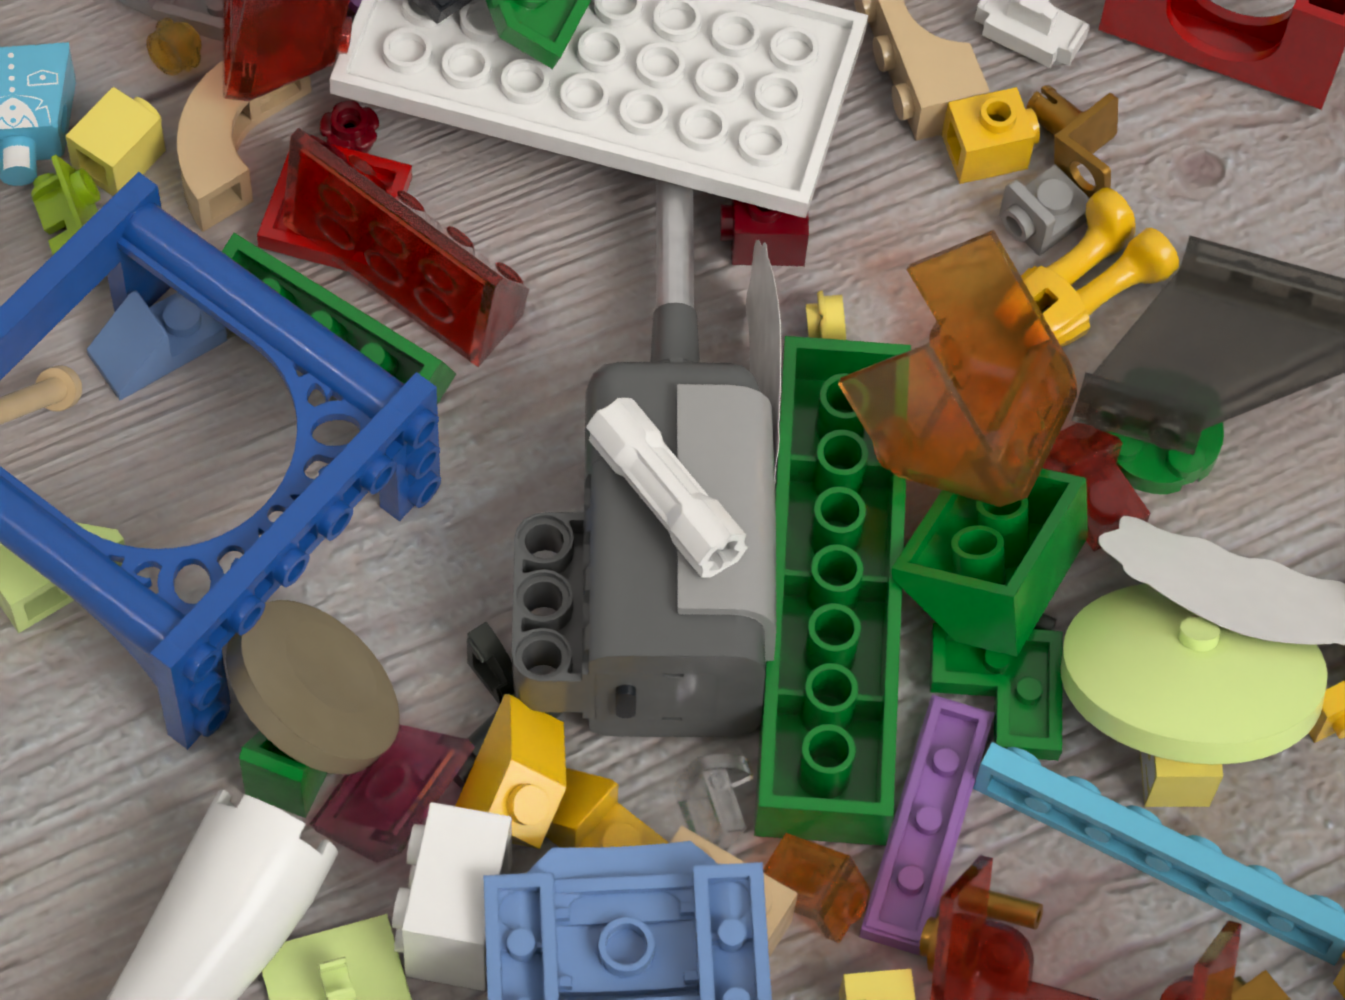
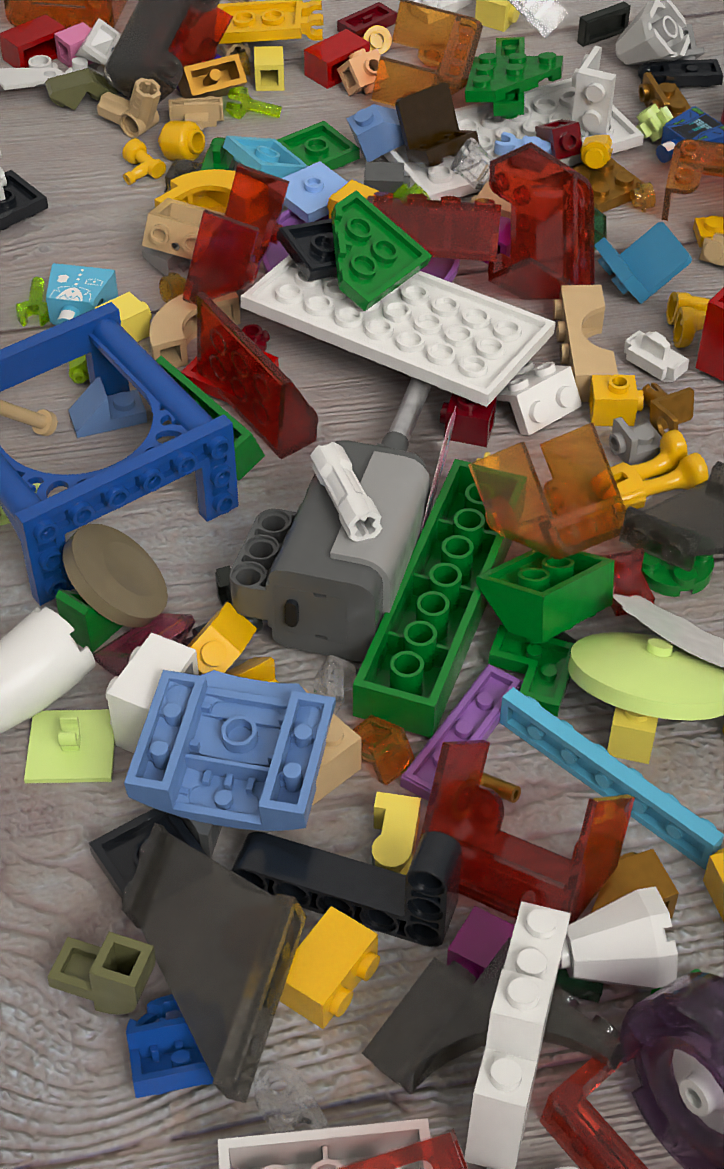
camera: 20 degrees right, 15 degrees down
(875, 152) = (541, 395): none -> white bracket

